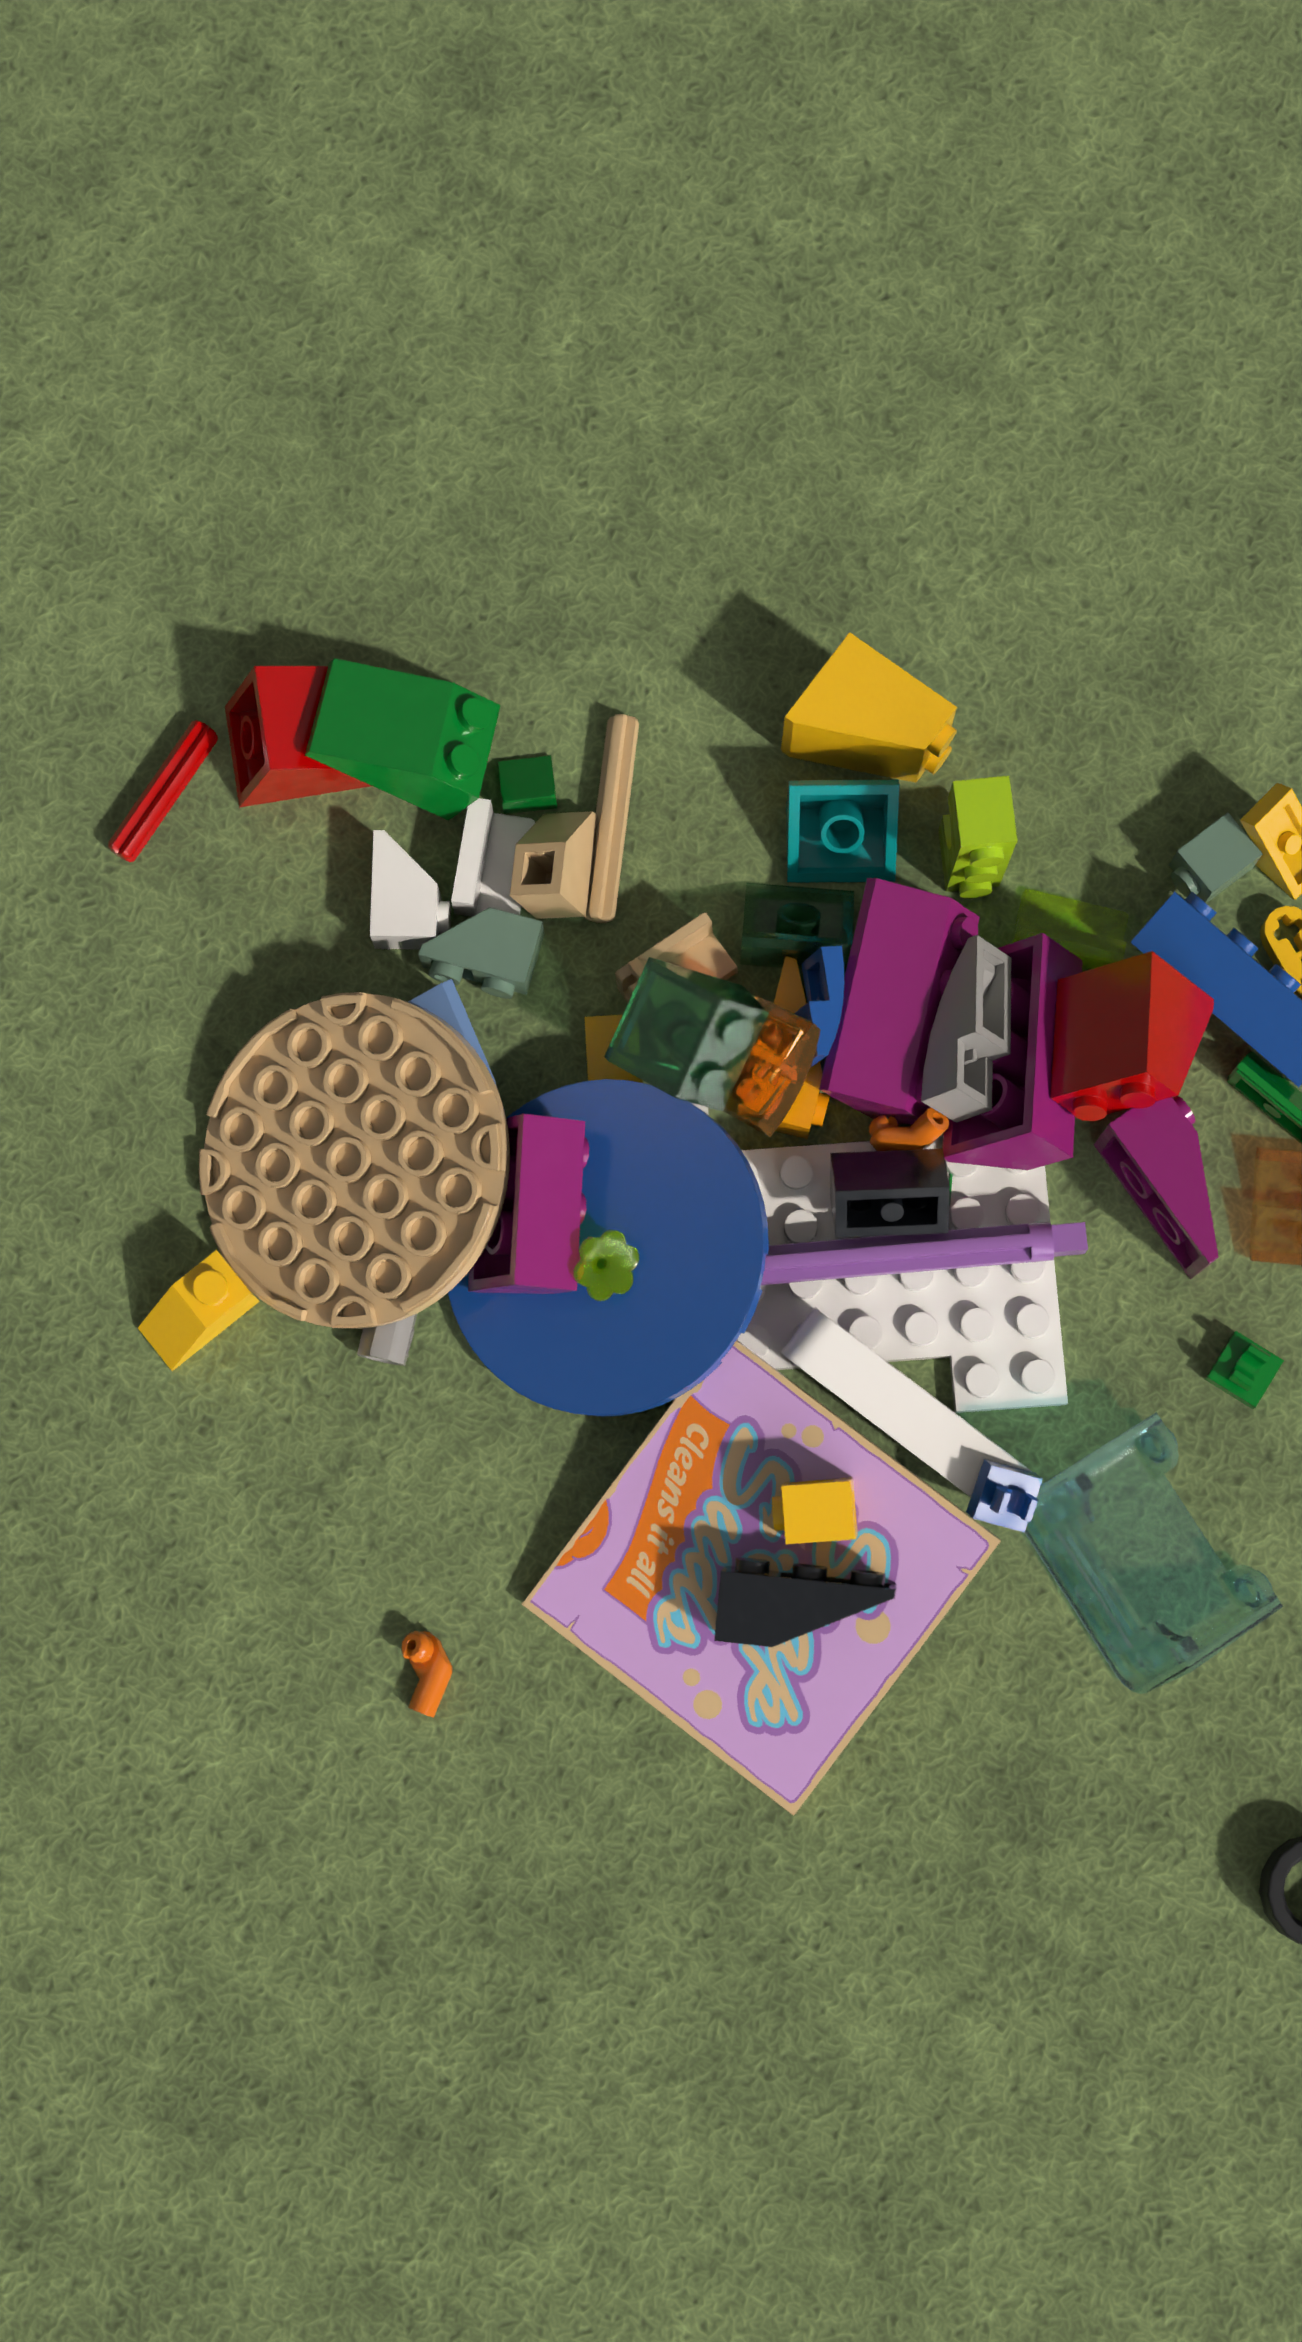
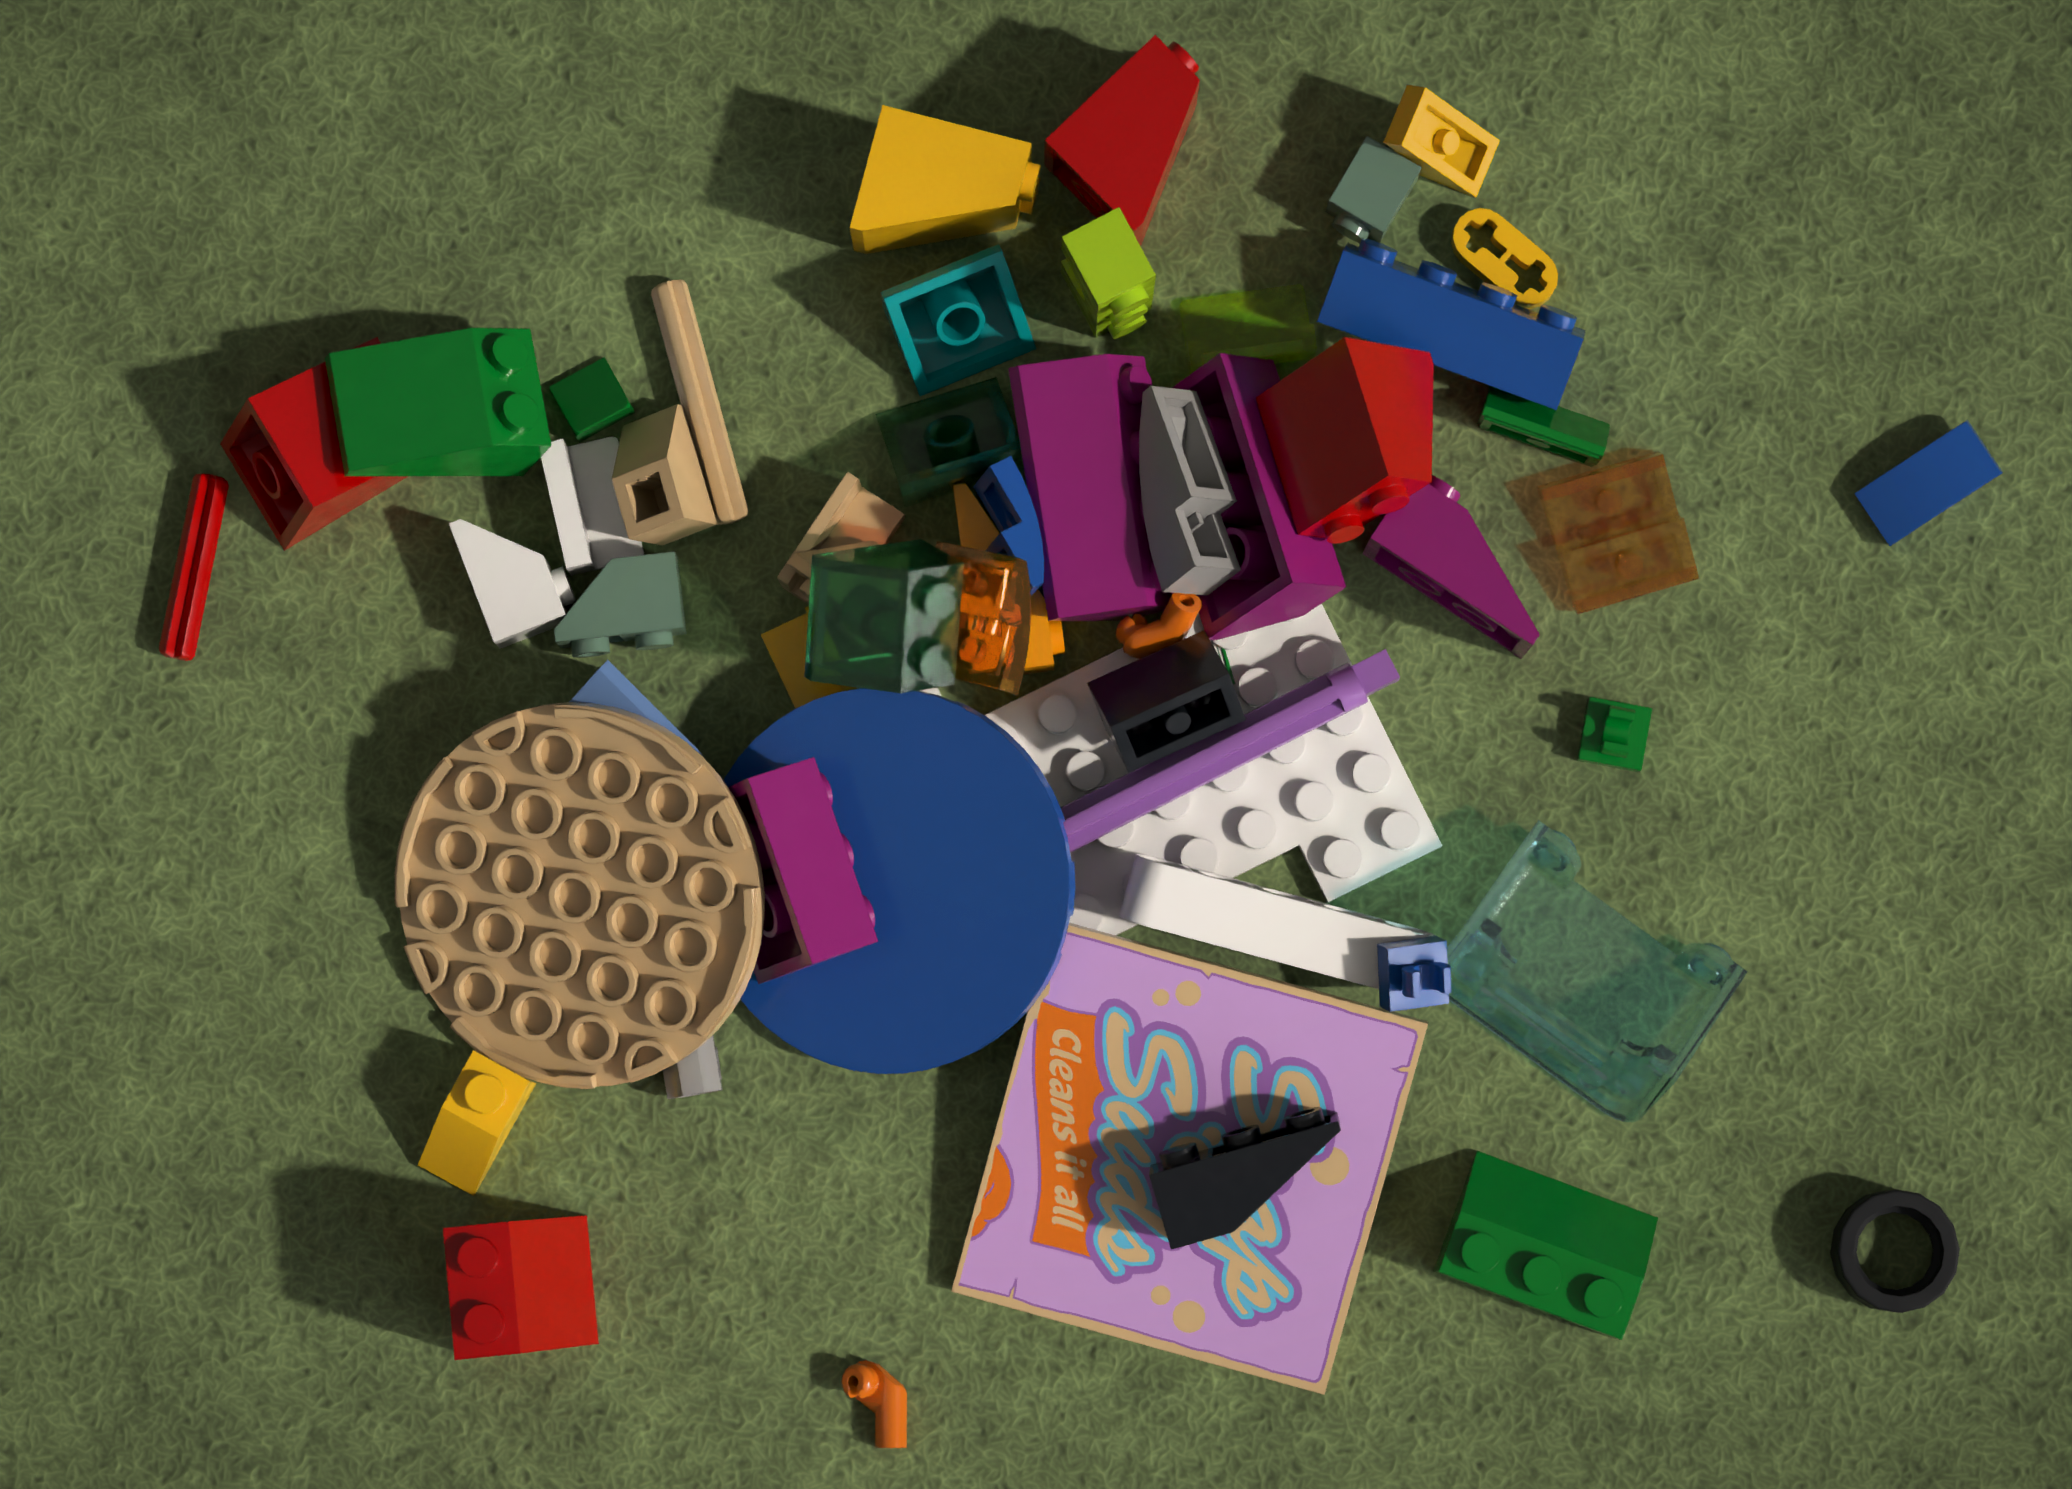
camera: 25 degrees left, 5 degrees up
(172, 1454) = (520, 1286): none -> red slope
(606, 1265) = (898, 901): clear neon green plant -> none
(816, 1511) = (1223, 1071): yellow brick -> none
(1028, 1768) = (1548, 1245): none -> green slope
(1037, 733) = (1128, 135): none -> red slope

